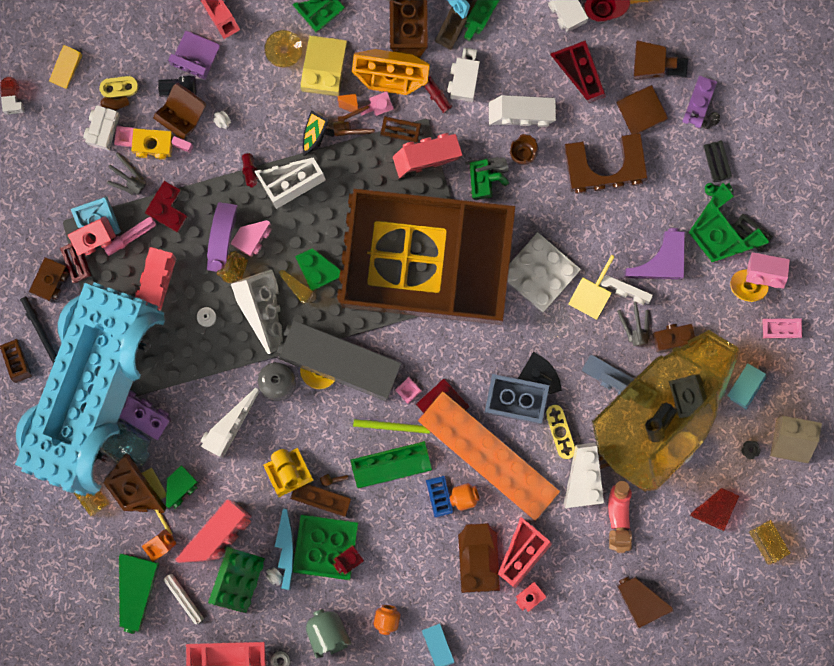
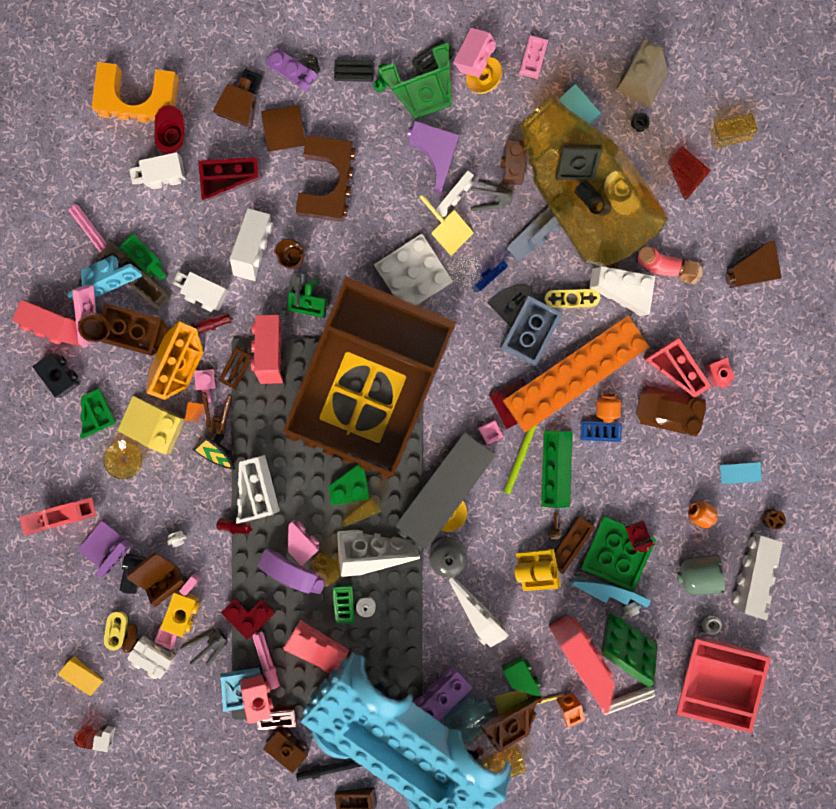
camera: 80 degrees left, 5 degrees up
(135, 589) = (607, 745): green slope -> none
(220, 296) = (338, 589): none -> green slope
(558, 344) = (489, 275): none -> clear blue plate

